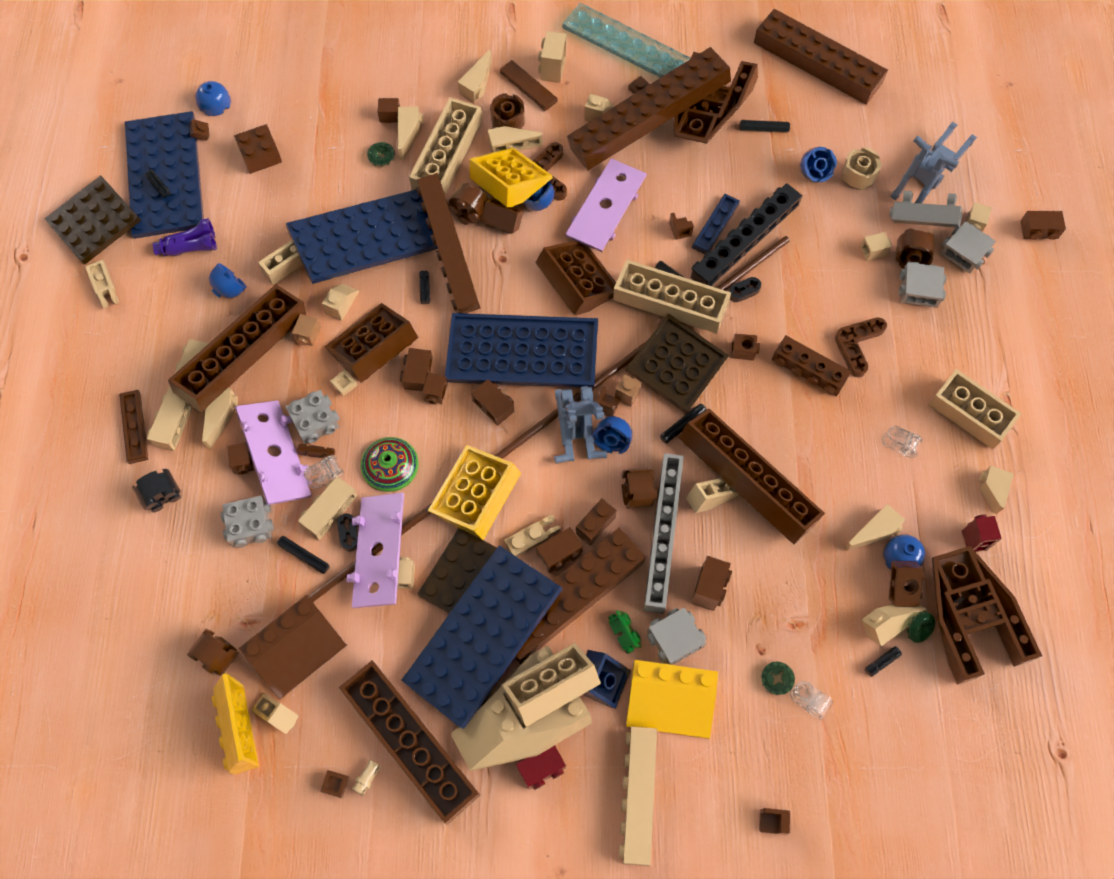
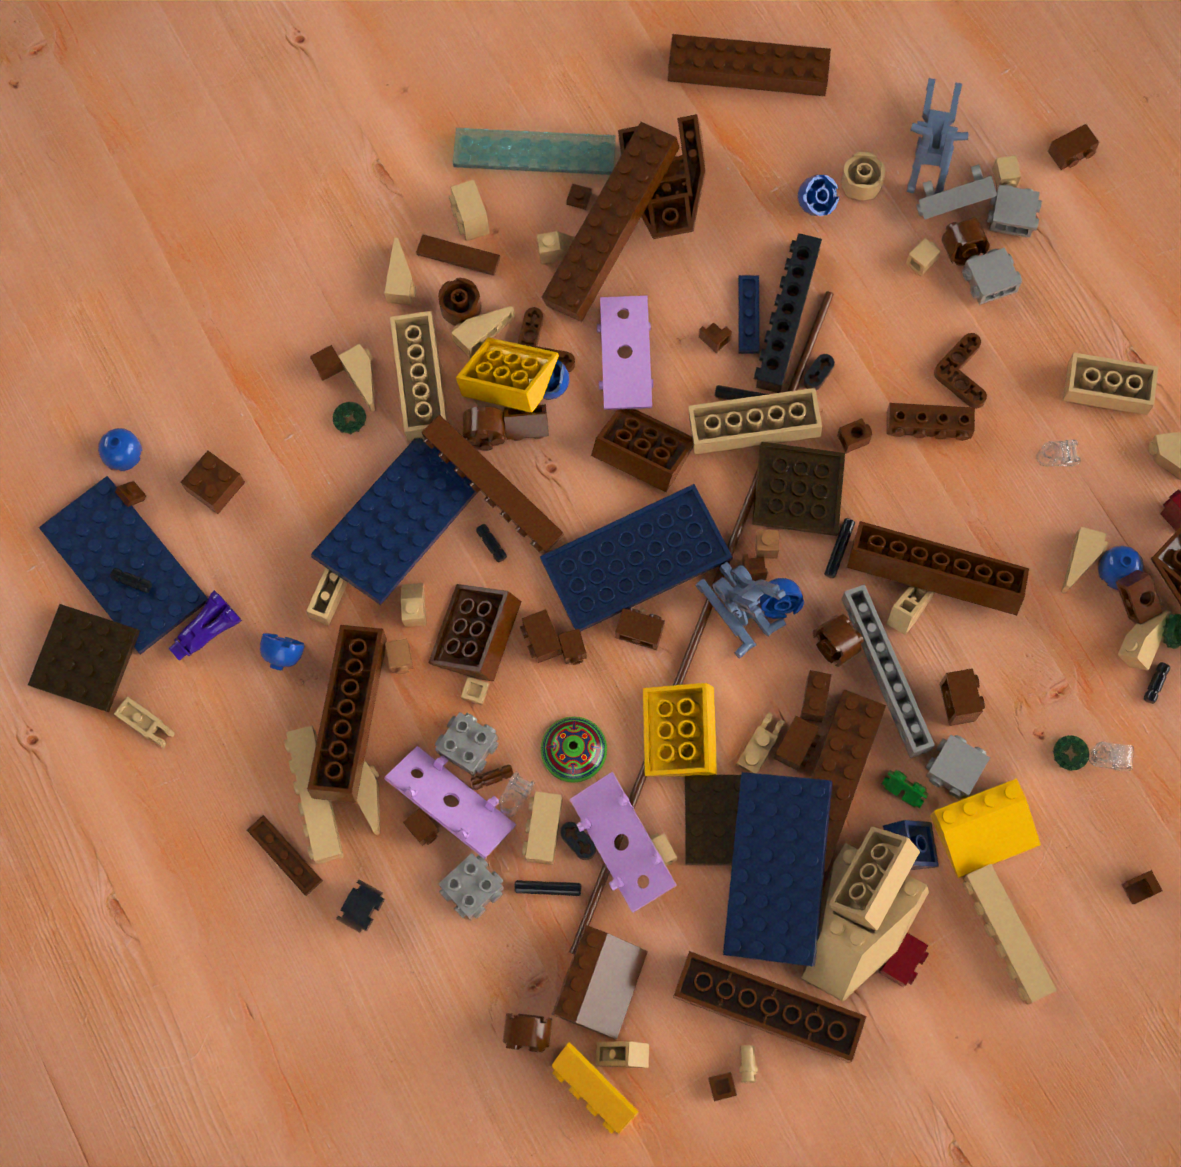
camera: 25 degrees left, 5 degrees up
(758, 125) = (735, 175): black axle -> none

